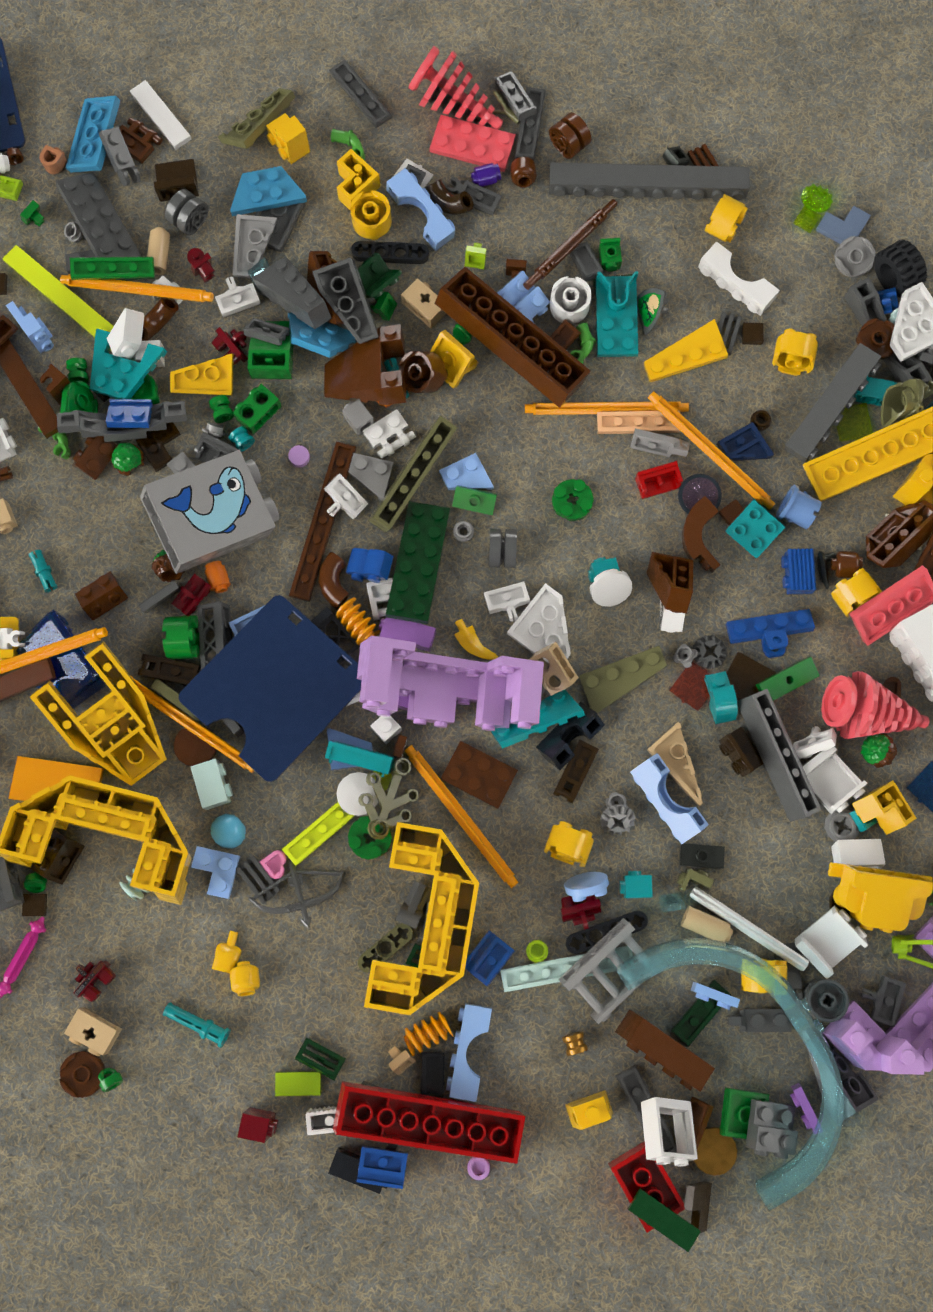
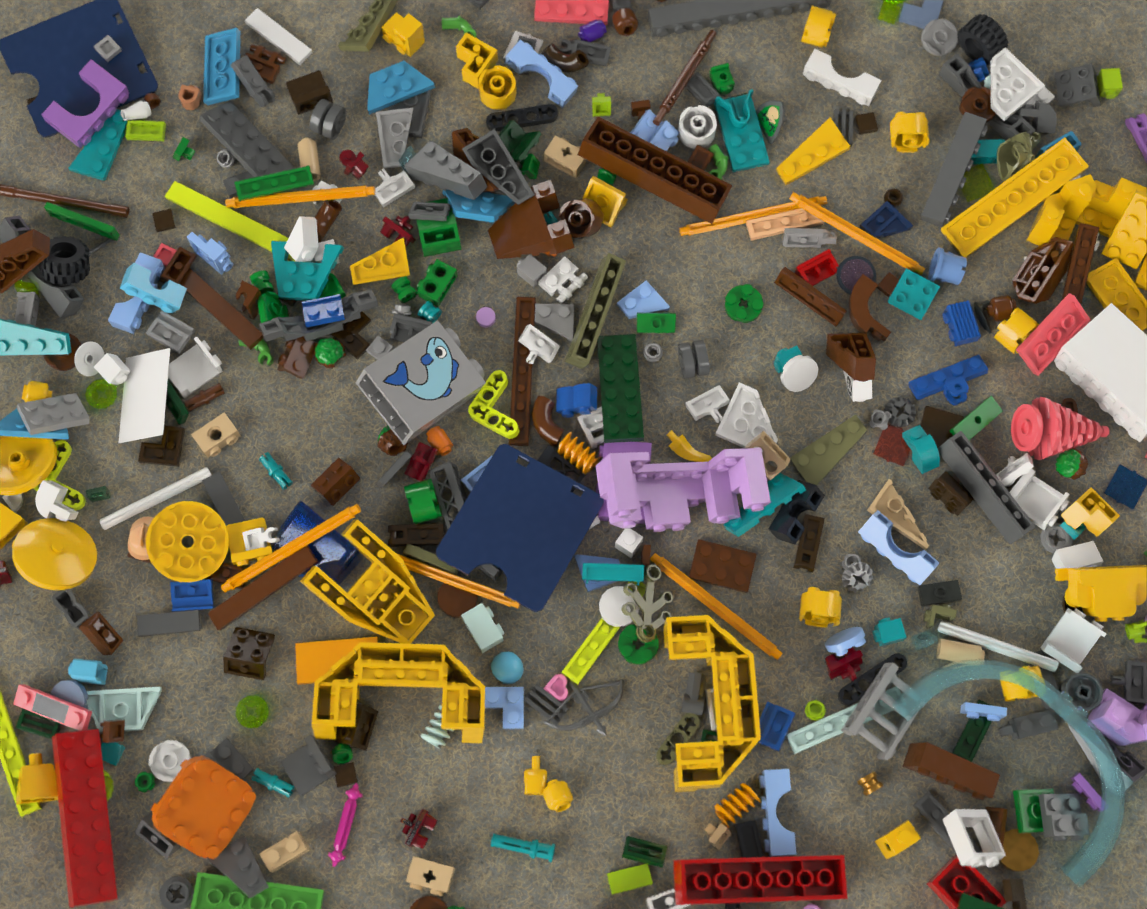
camera: 15 degrees left, 5 degrees down
(275, 551) = (487, 406): none -> neon yellow beam
(644, 507) = (810, 296): none -> reddish brown tile

